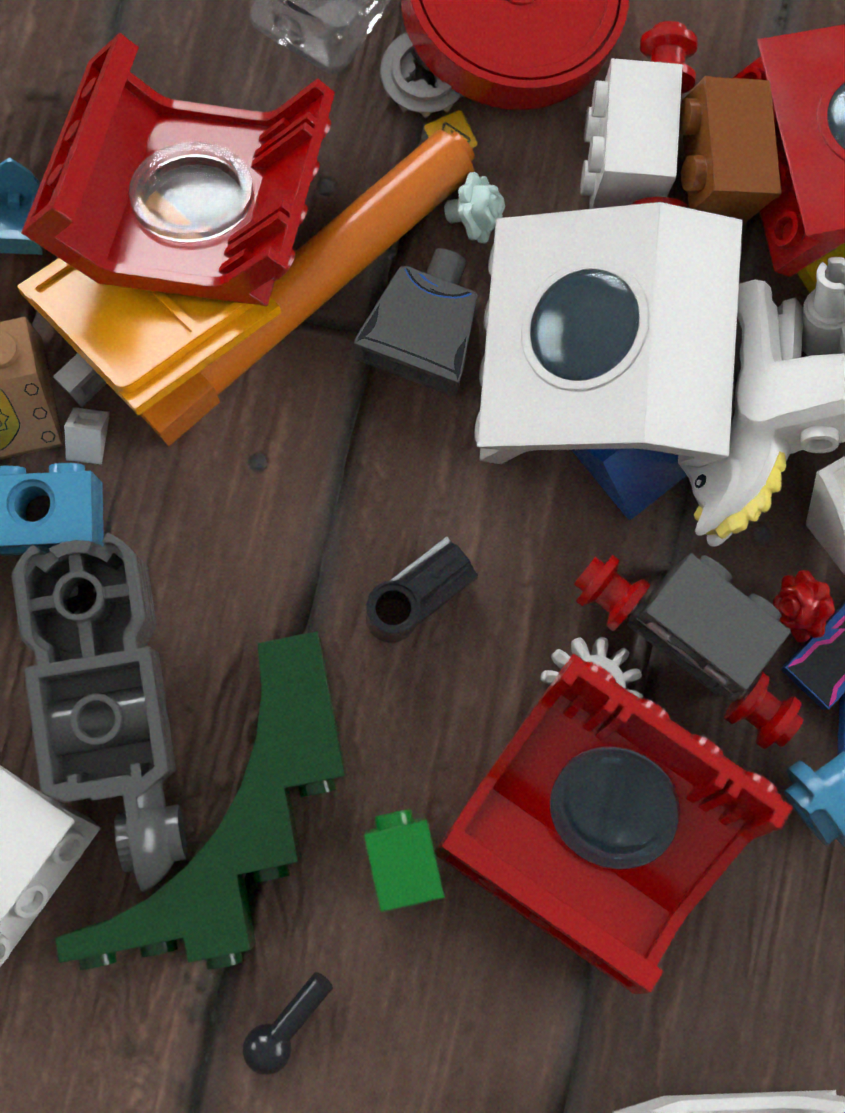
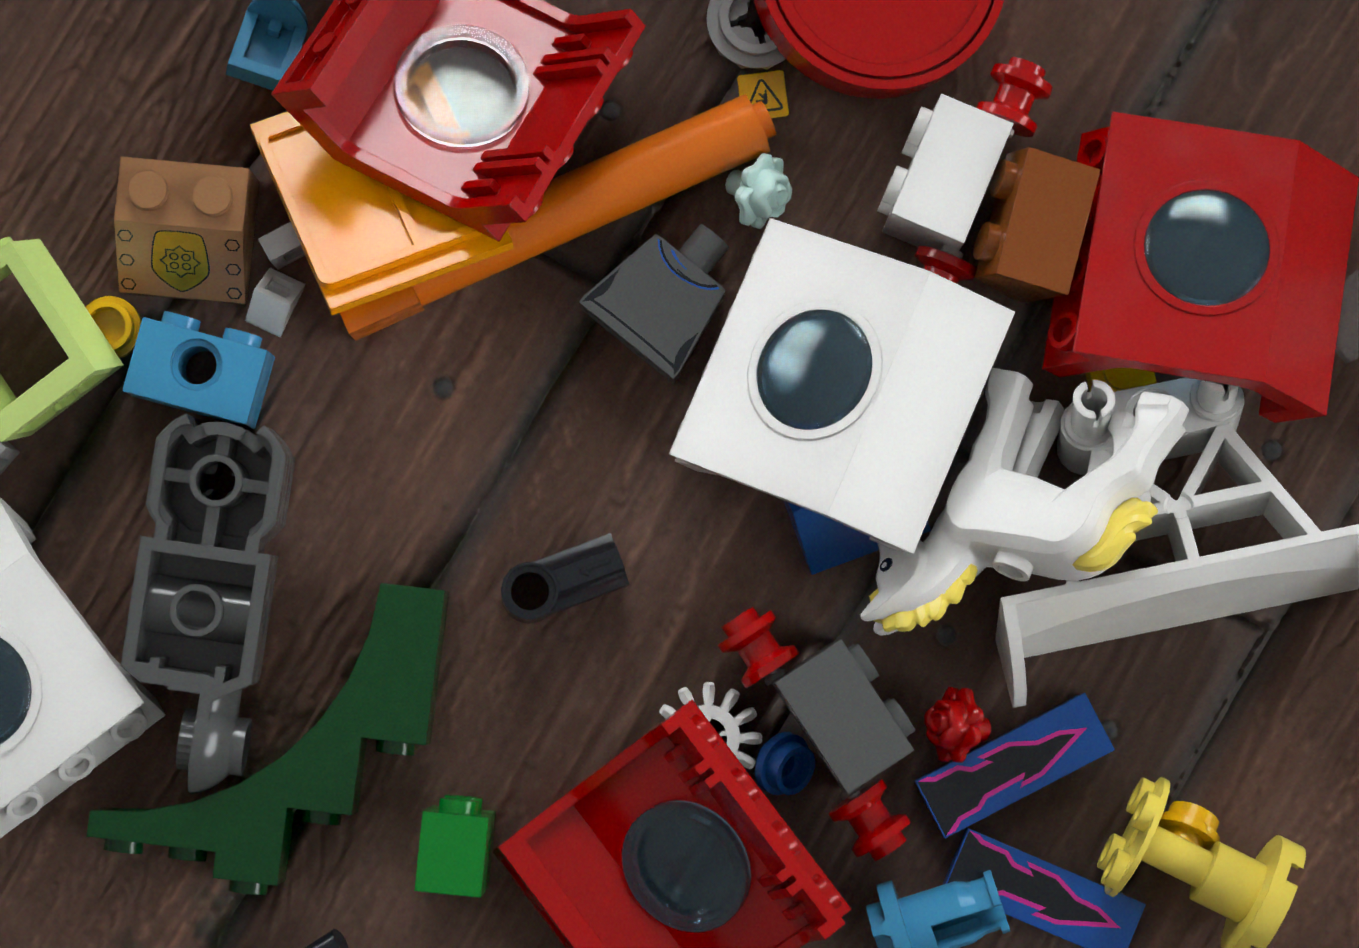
camera: 20 degrees right, 5 degrees up
(668, 687) = (784, 764): none -> blue plate

